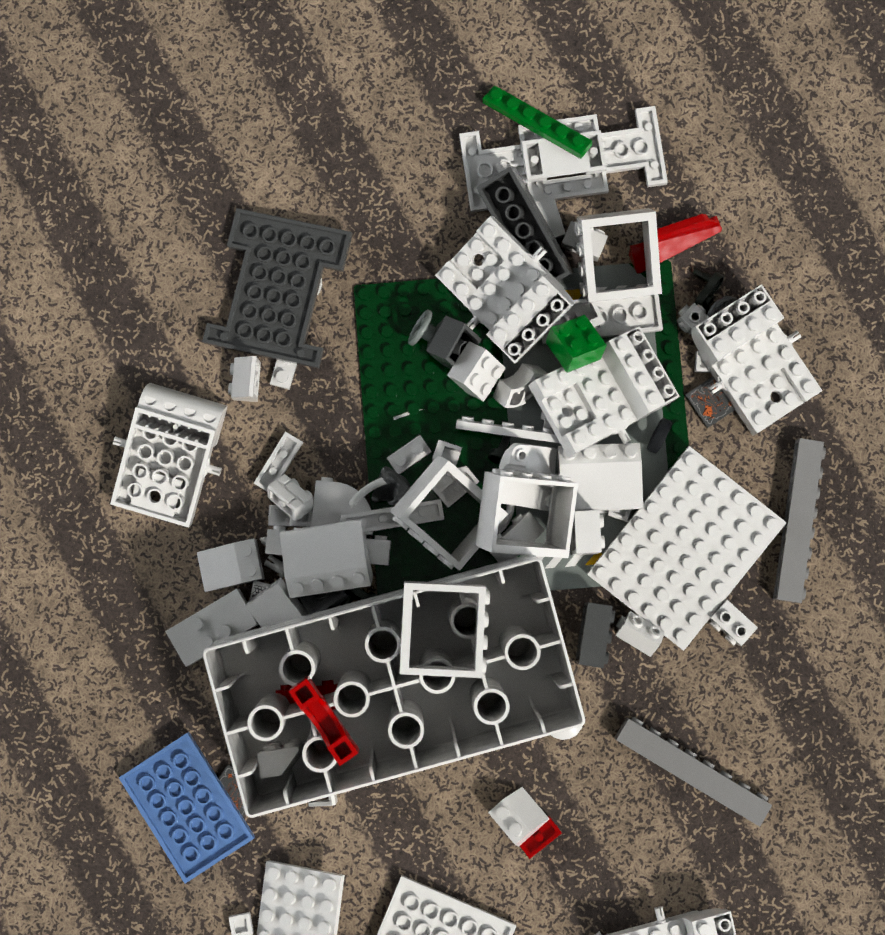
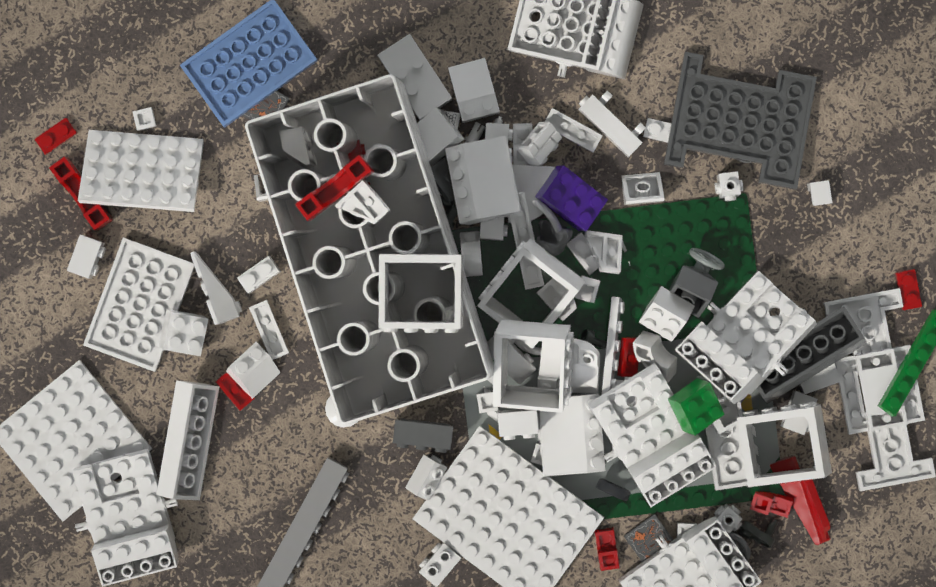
camera: 90 degrees right, 5 degrees up
(245, 379) = (650, 94): white slope -> none
(274, 423) = (610, 125): none -> white brick
(338, 299) = (731, 179): none -> white brick
(342, 688) = (364, 203): none -> white wing
(343, 392) = (642, 188): none -> white slope
(349, 466) = (571, 198): none -> dark purple brick
(356, 209) = (820, 192): none -> white panel
(396, 574) = (472, 253): none -> white brick
(406, 432) = (606, 250): none -> white wing
(416, 806) = (258, 274): none -> white brick
(444, 849) = (220, 301): none -> white wedge
(455, 125) = (909, 289): none -> red plate
(475, 797) = (269, 329): none -> white plate
(475, 892) = (183, 332): none -> white brick
(524, 414) = (627, 360): none -> red plate
(562, 566) = (485, 402): none -> white tile
(593, 892) = (187, 440): none -> white brick
(677, 272) = (770, 502): none -> red slope
(721, 446) = (606, 549): none -> red slope

